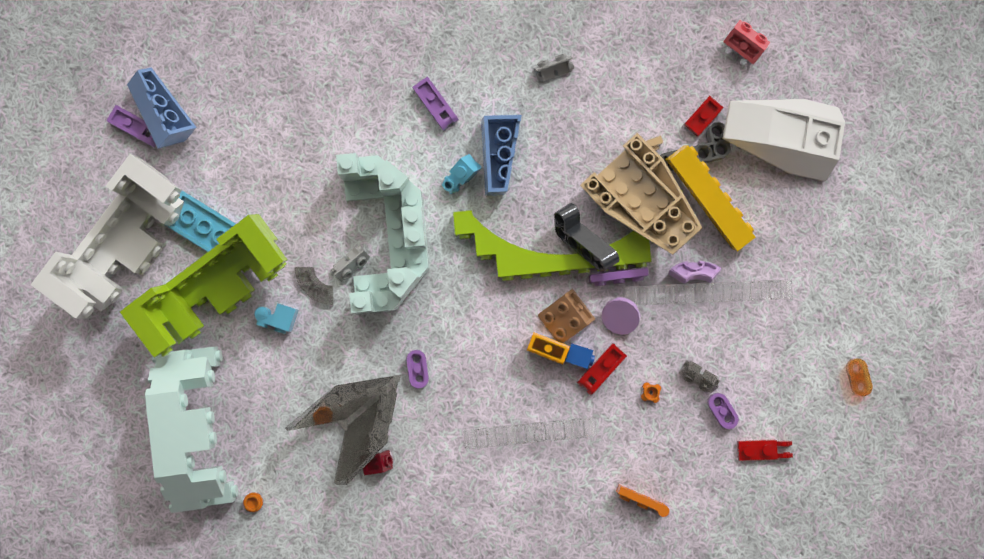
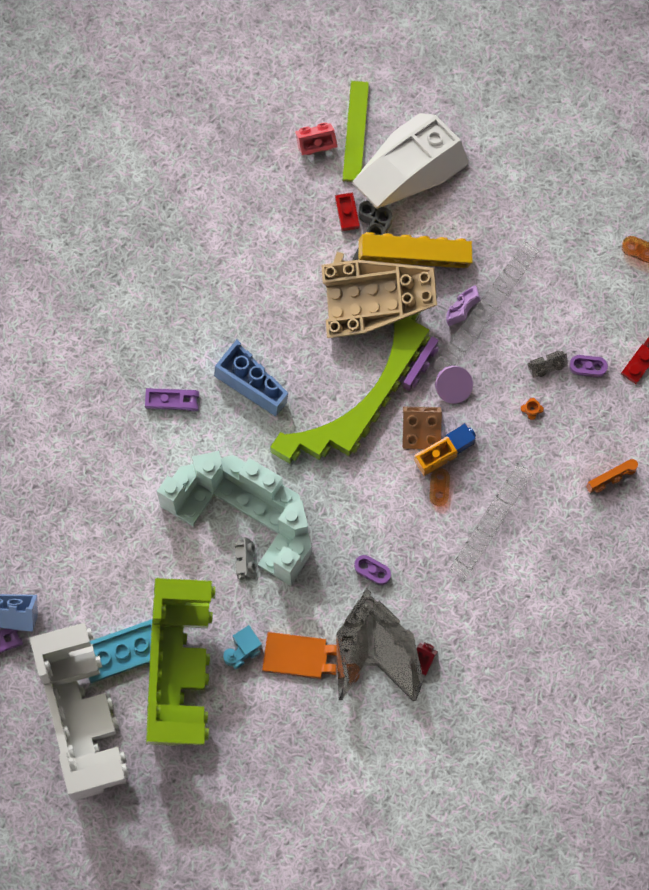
camera: 45 degrees left, 15 degrees down
(180, 431) = (279, 777): light aqua brick -> none
(253, 502) = (378, 782): orange plate -> none
(304, 363) = (298, 655): none -> orange tile
(312, 287) = (240, 603): clear smoke tile -> none
(461, 173) = (244, 418): medium azure brick -> none
(527, 369) = (439, 486): none -> clear orange plate
(546, 68) = (214, 297): light grey hinge -> none
(582, 239) = (372, 366): black beam -> none
(602, 368) = (484, 430): red plate -> none
(781, 67) = (355, 130): none -> lime tile

